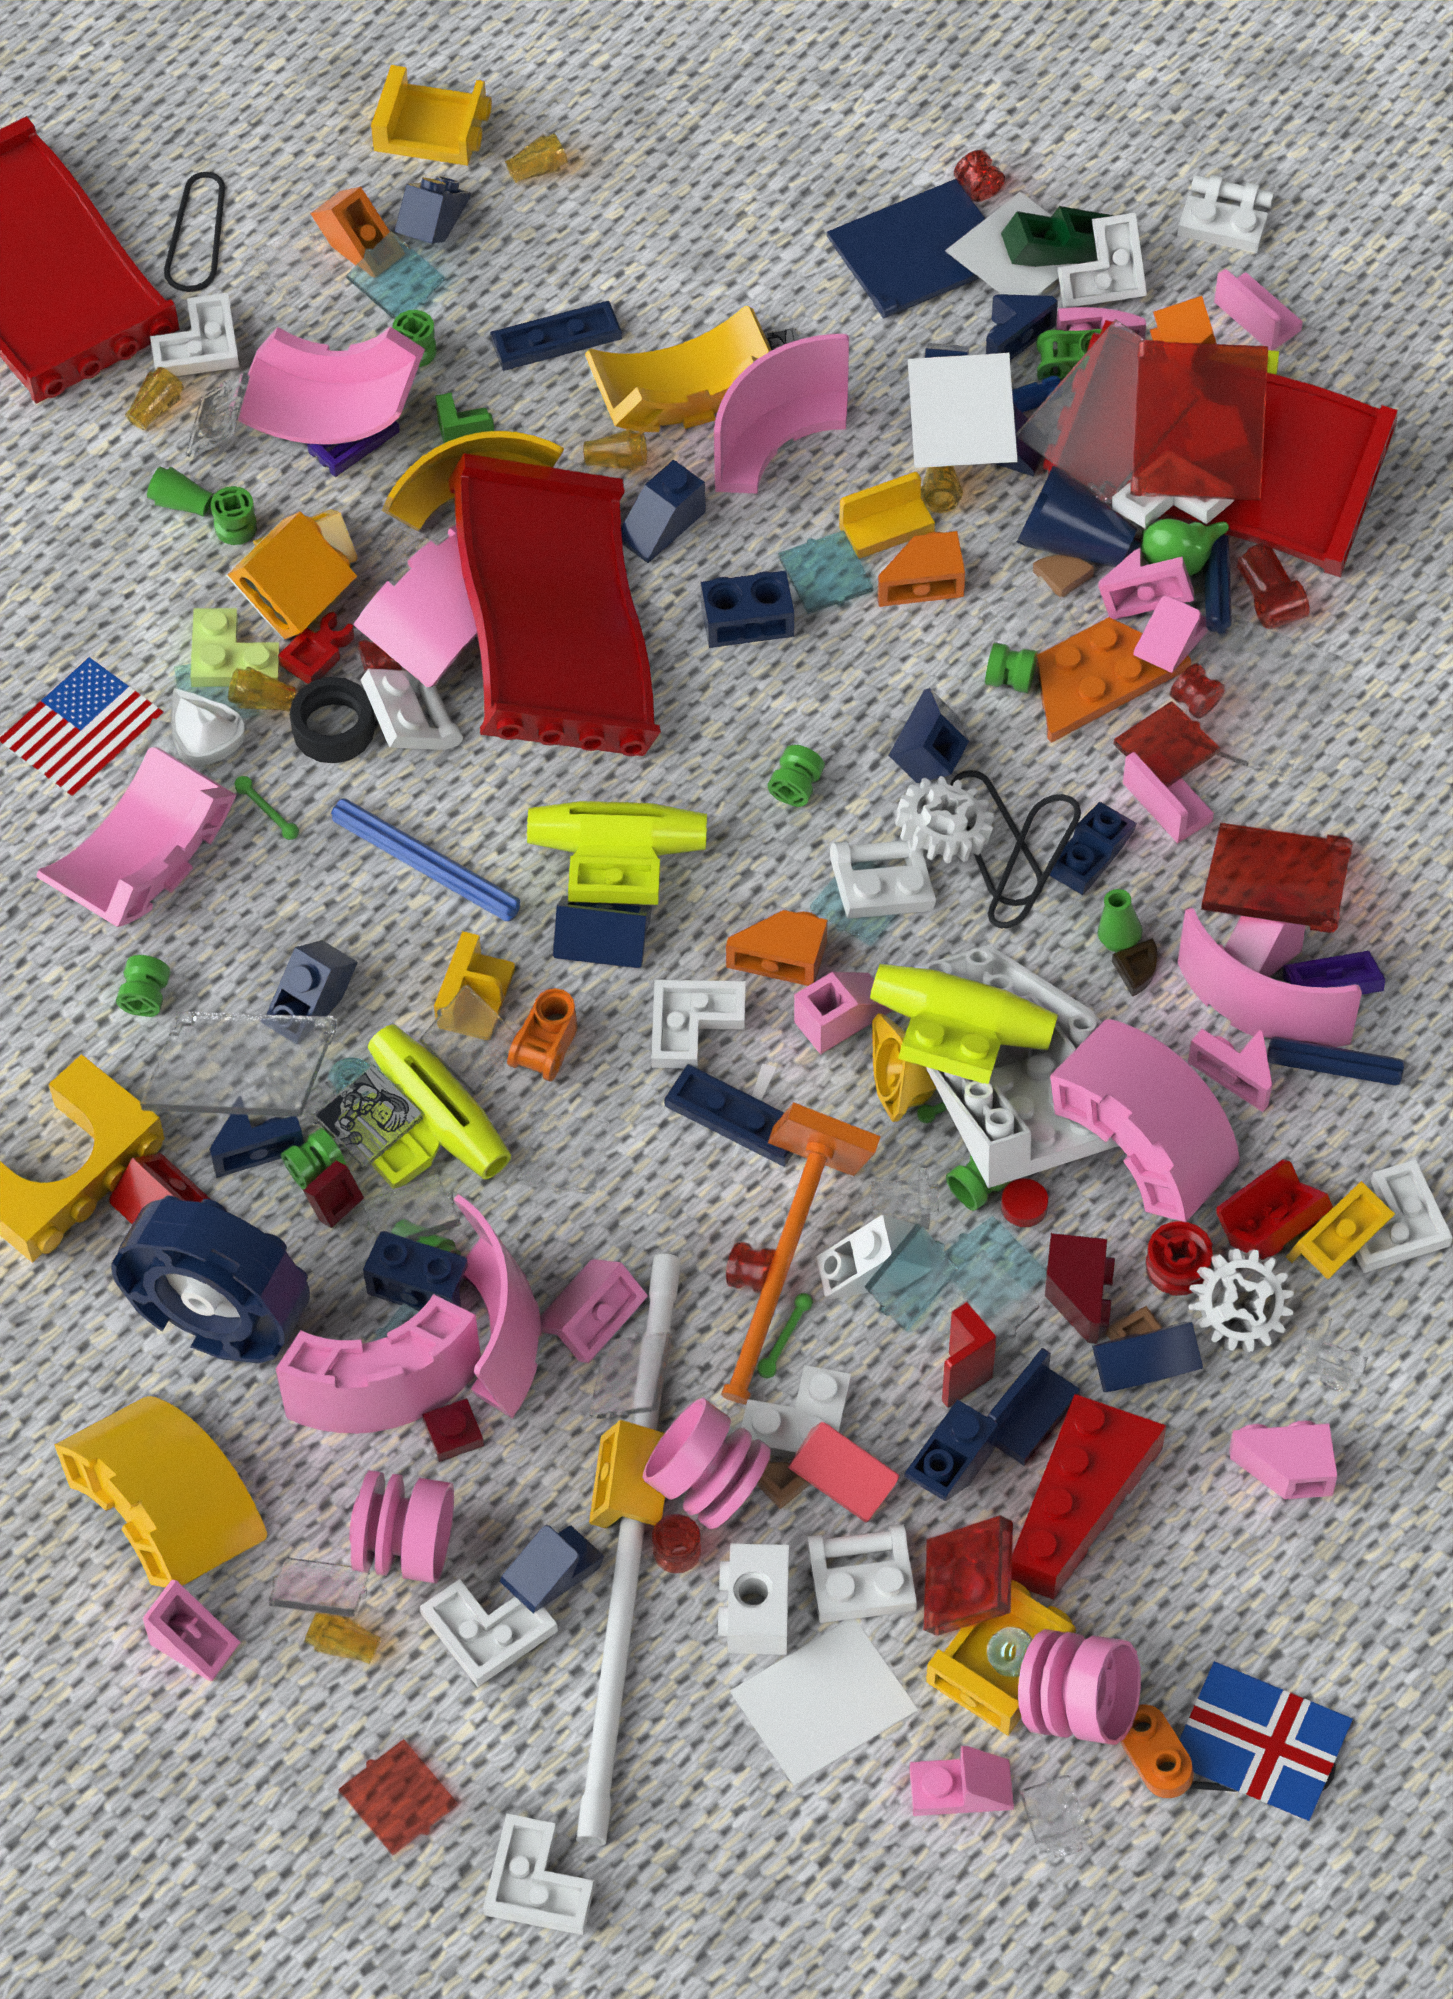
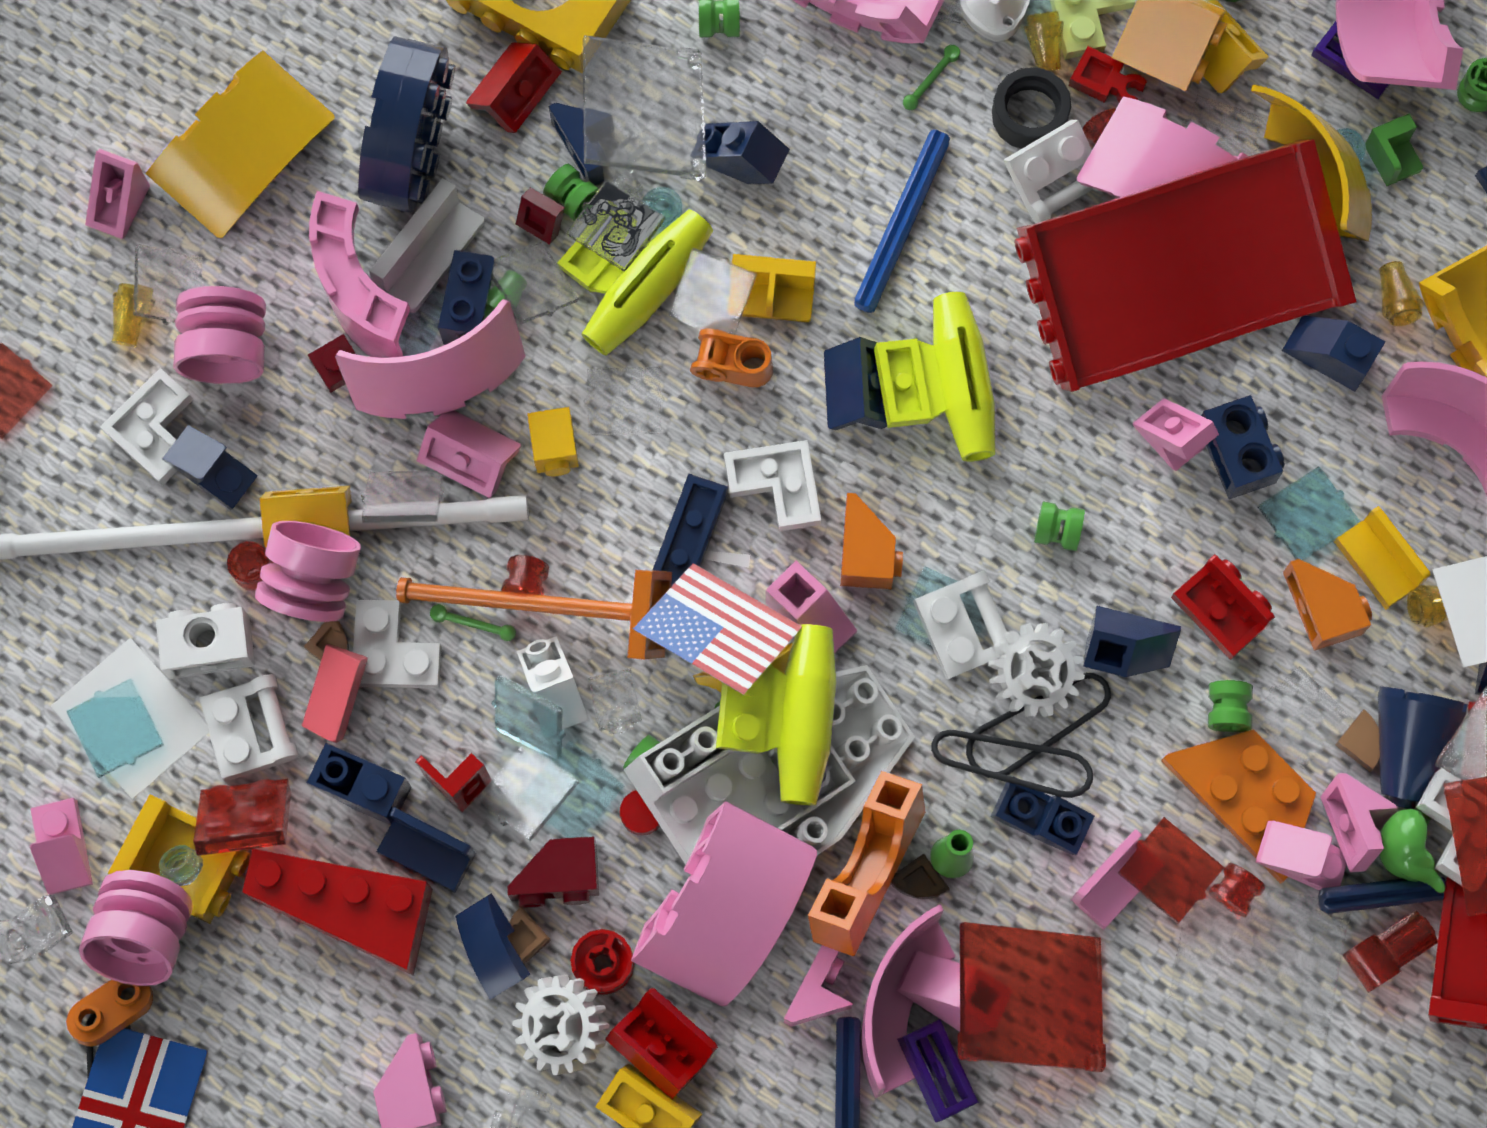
camera: 80 degrees right, 15 degrees up
(340, 1309) = (426, 246): none -> white panel
(601, 1219) = (553, 441): none -> yellow brick
(720, 657) = (1175, 432): none -> bright pink slope
(834, 1715) = (115, 728): none -> clear light blue piece
(864, 1057) = (718, 628): none -> sticker
(908, 652) = (1224, 606): none -> red bracket
(1154, 1002) = (852, 898): none -> orange arch

